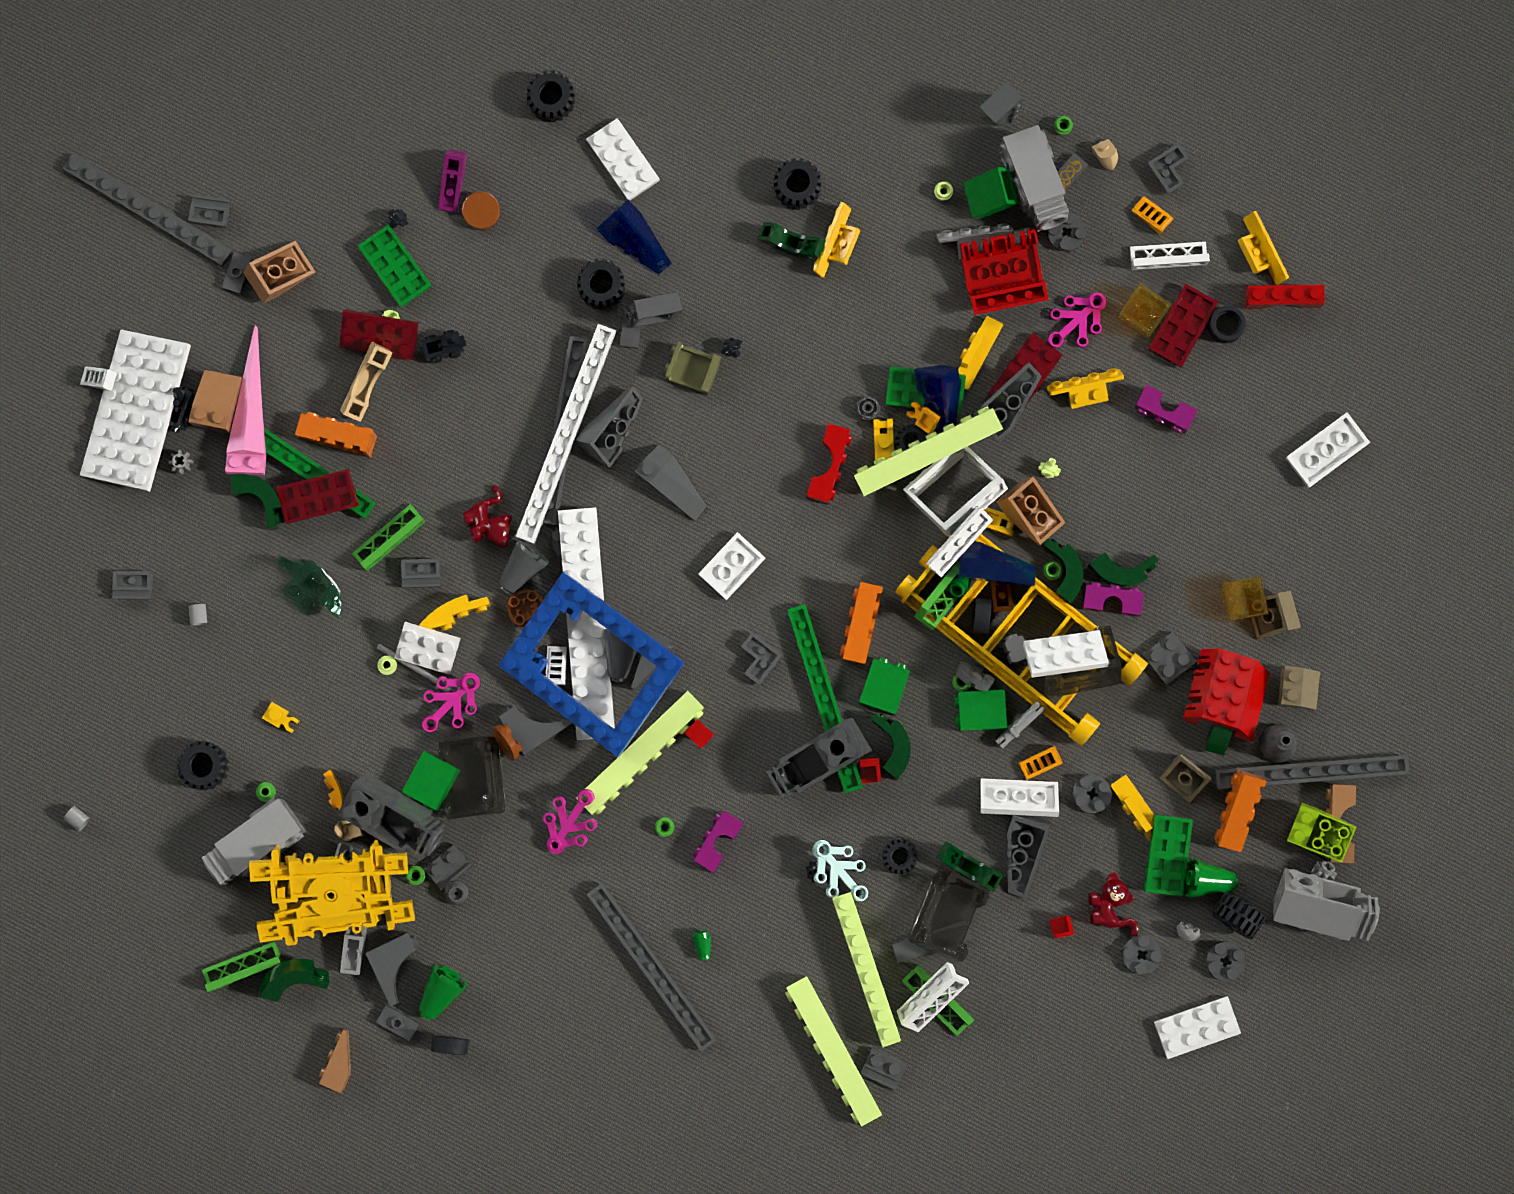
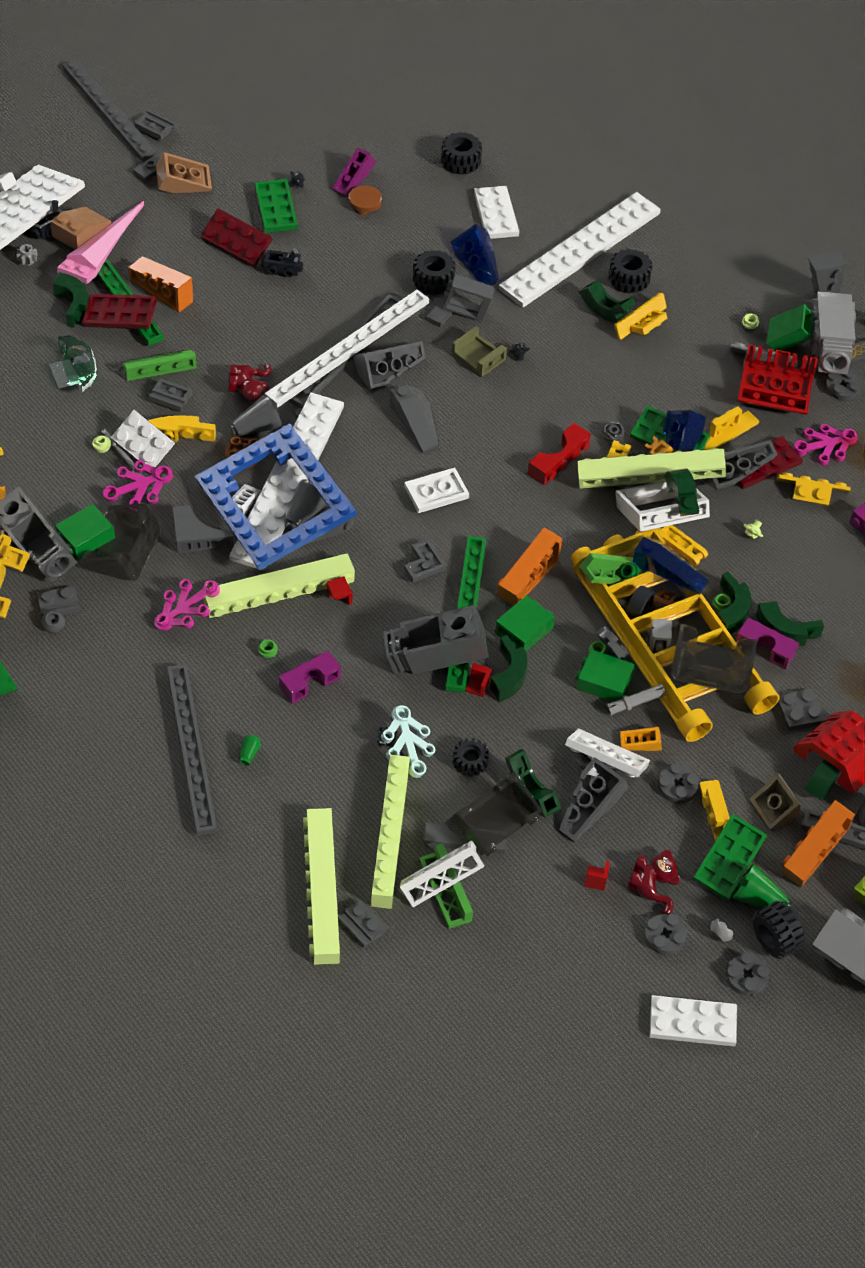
camera: 20 degrees right, 30 degrees down
(360, 390) = (218, 249): tan arch -> none
(411, 880) = (26, 595): bright green plate -> none
(505, 741) = (168, 528): dark orange tile -> none
(731, 170) = (579, 249): none -> white plate
(959, 541) = (647, 526): white fence -> none
(974, 479) = (684, 487): none -> dark green arch
(1031, 510) = (722, 545): medium nougat slope -> none
(1065, 653) = (705, 637): white plate -> none

